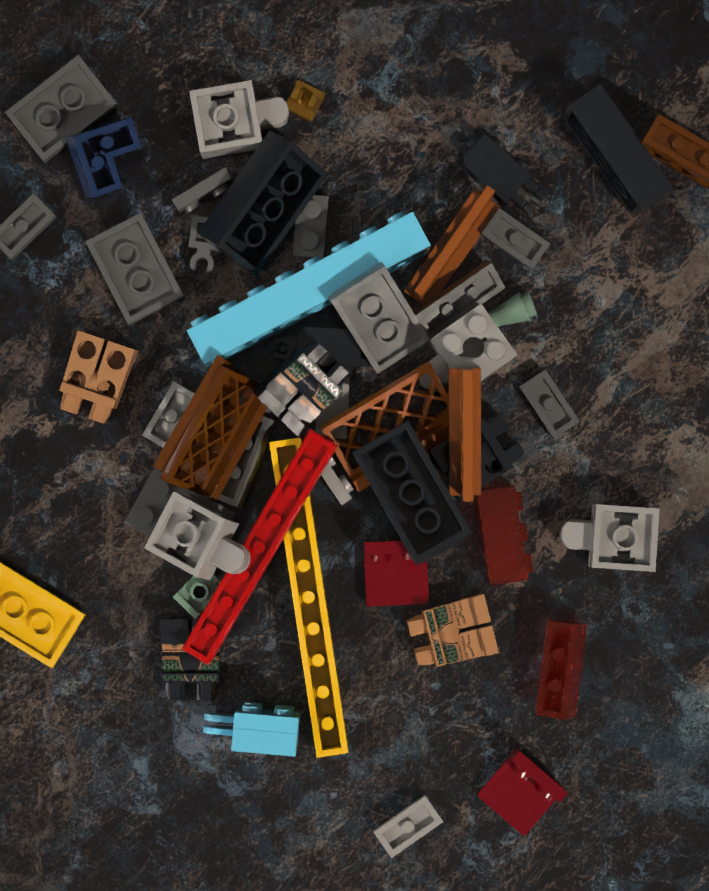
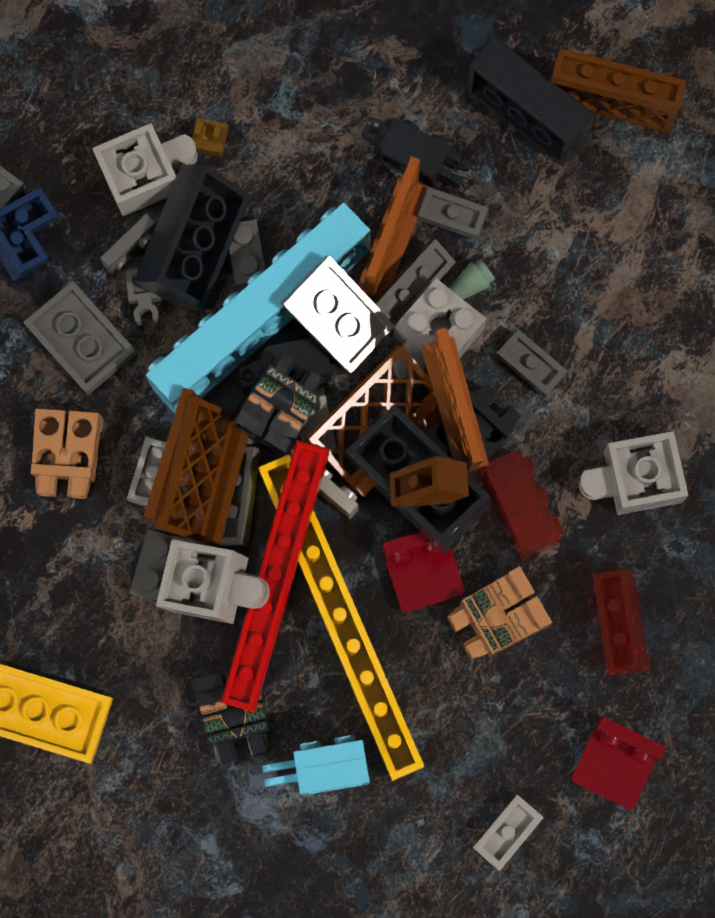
camera: 15 degrees left, 10 degrees down
(187, 598) = (214, 652): sand green brick -> none
(418, 507) = (429, 483): none -> reddish brown slope

